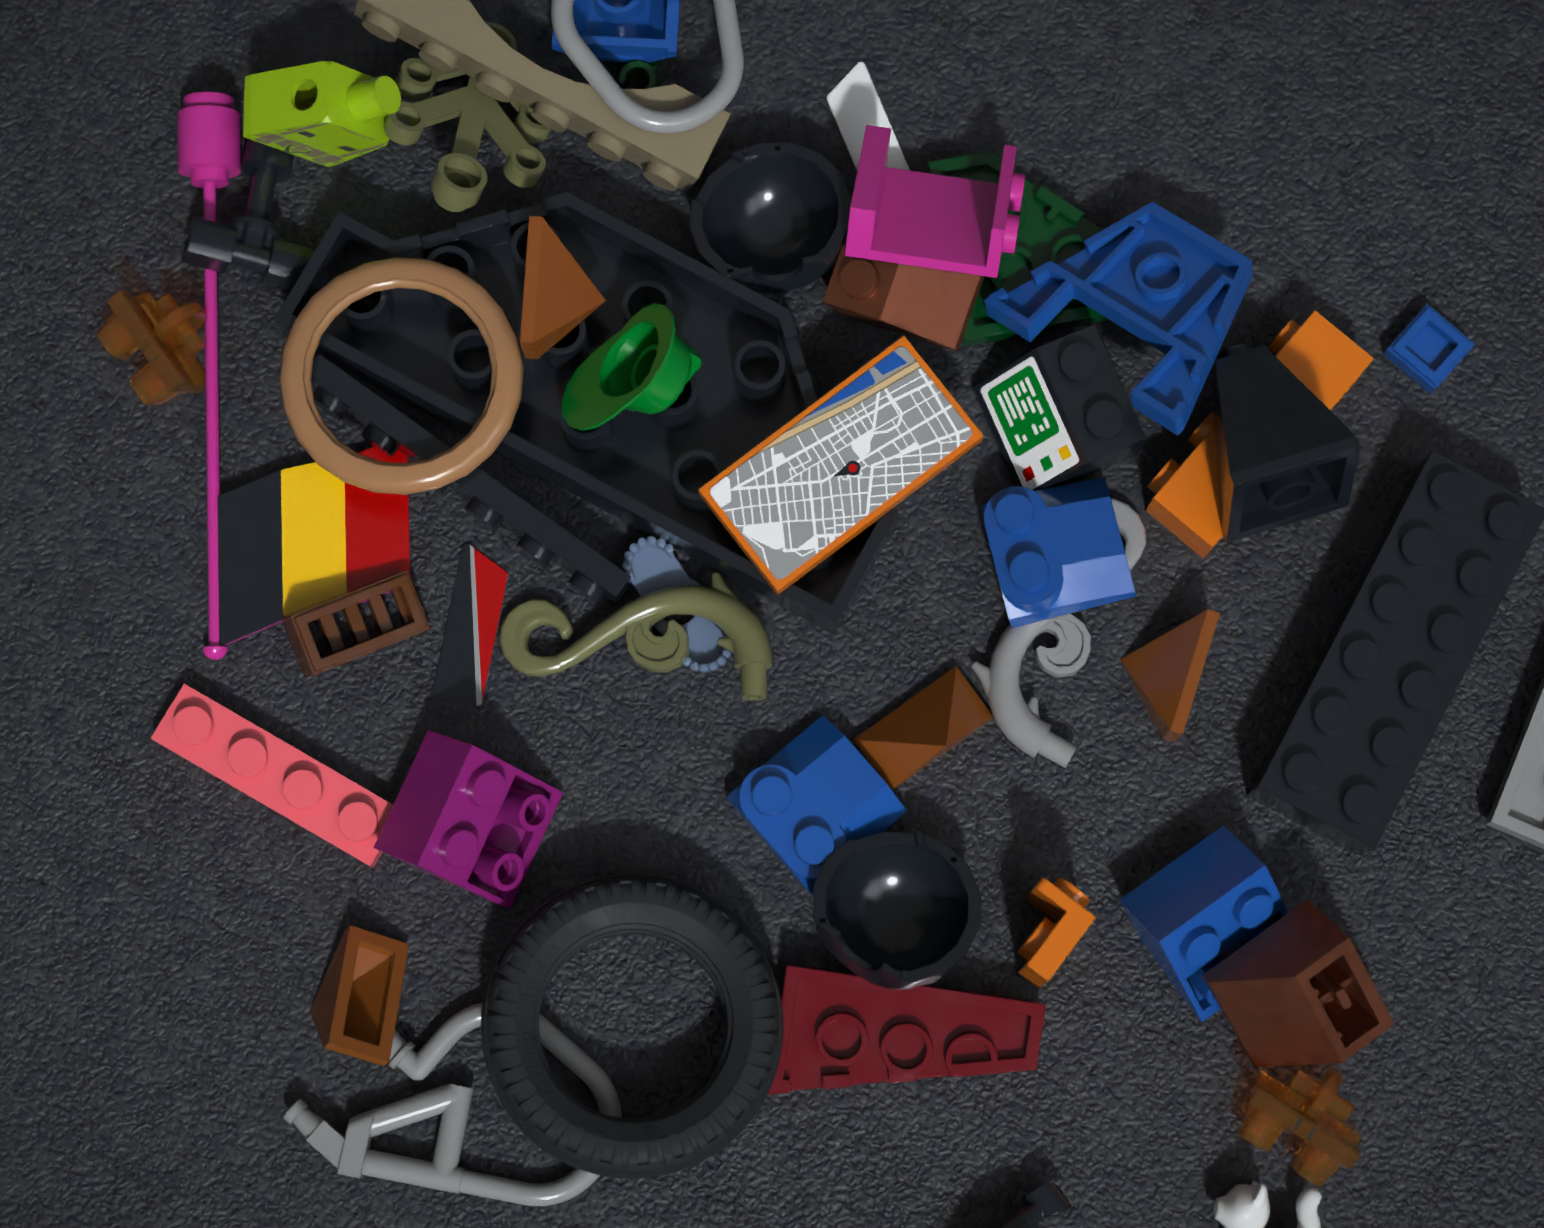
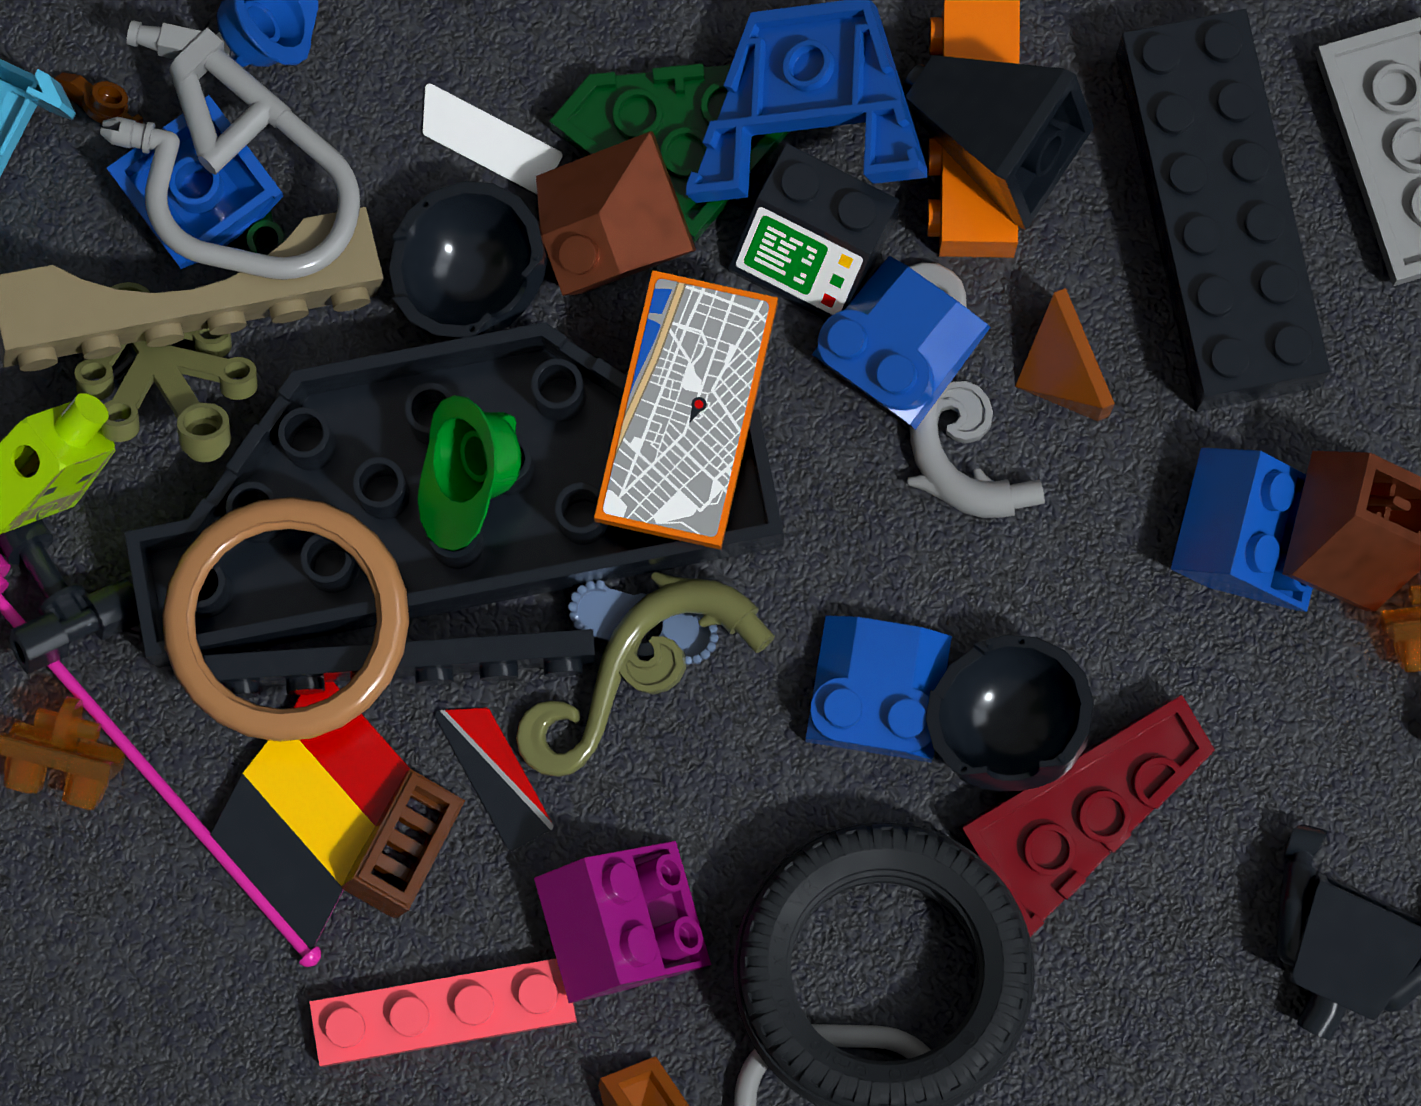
camera: 35 degrees left, 0 degrees up
(555, 291) = (353, 454): dark orange slope -> none
(923, 728) = (910, 562): dark orange slope -> none
(931, 216) = (594, 159): dark pink panel -> none
(1051, 941) = (1149, 646): orange bracket -> none

